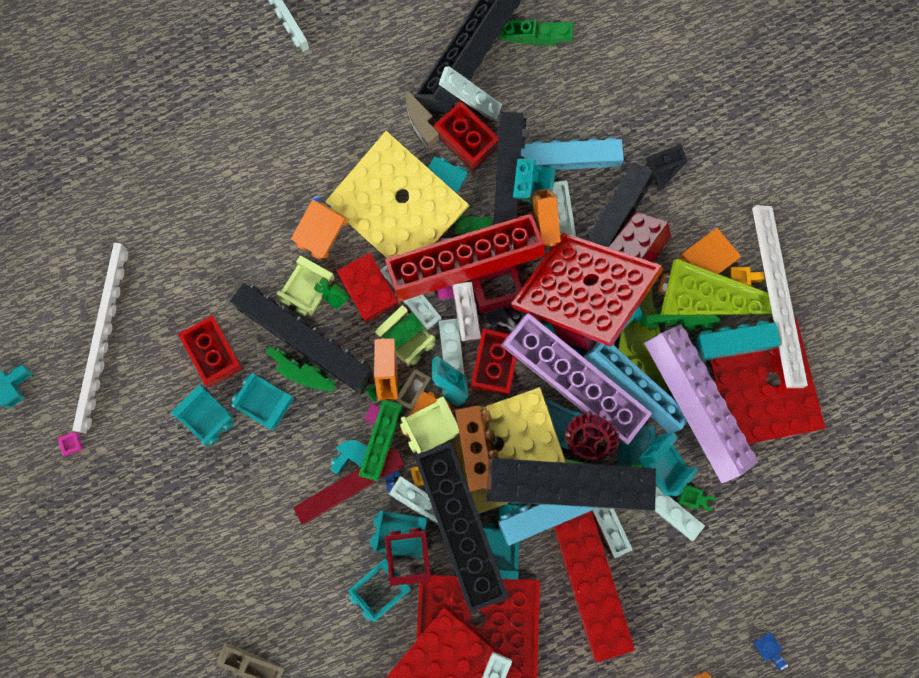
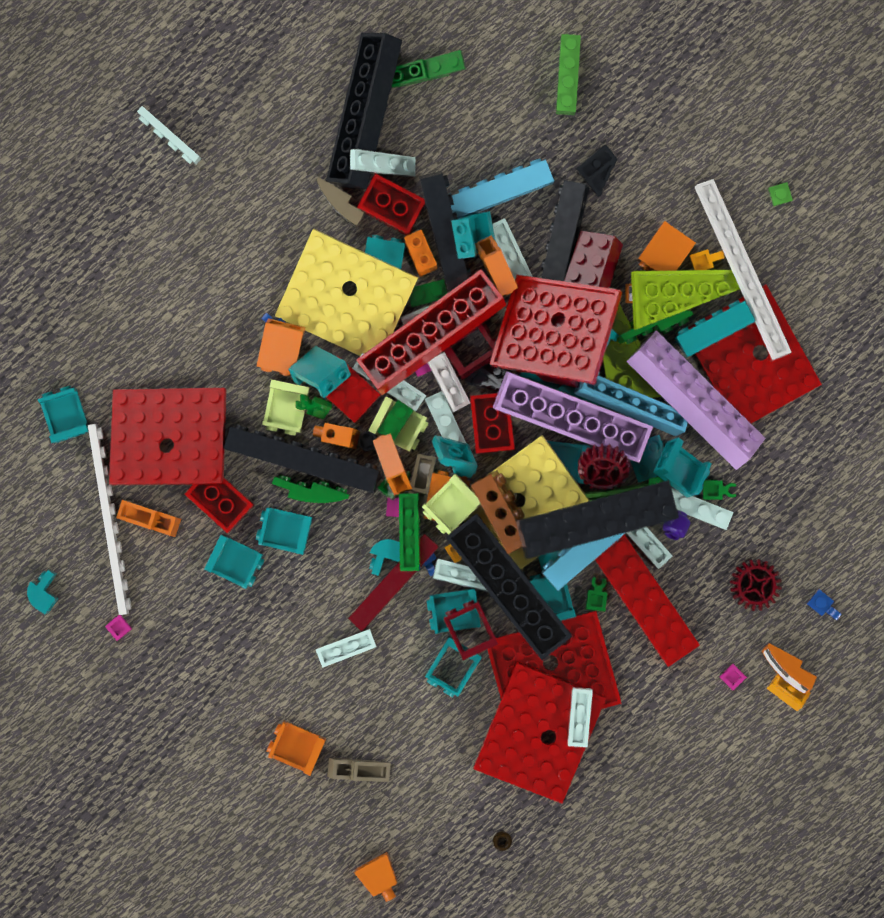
camera: 15 degrees left, 10 degrees up
(98, 228) = (64, 414): none -> teal panel
(138, 348) = (148, 518): none -> orange slope
(196, 620) = (296, 747): none -> orange panel
(208, 265) = (186, 416): none -> red plate
(280, 536) = (346, 648): none -> light aqua plate
(345, 327) = (343, 436): none -> orange torso
(348, 259) = (320, 370): none -> teal panel
(369, 340) = (365, 441): none -> black wheel
(479, 184) = (420, 253): none -> orange panel
(543, 567) = (596, 599): none -> green plate
(644, 521) = (677, 528): none -> dark purple head
(664, 74) = (568, 74): none -> bright green brick
(712, 625) = (770, 577): none -> dark red gear
(831, 240) = (780, 194): none -> bright green plate

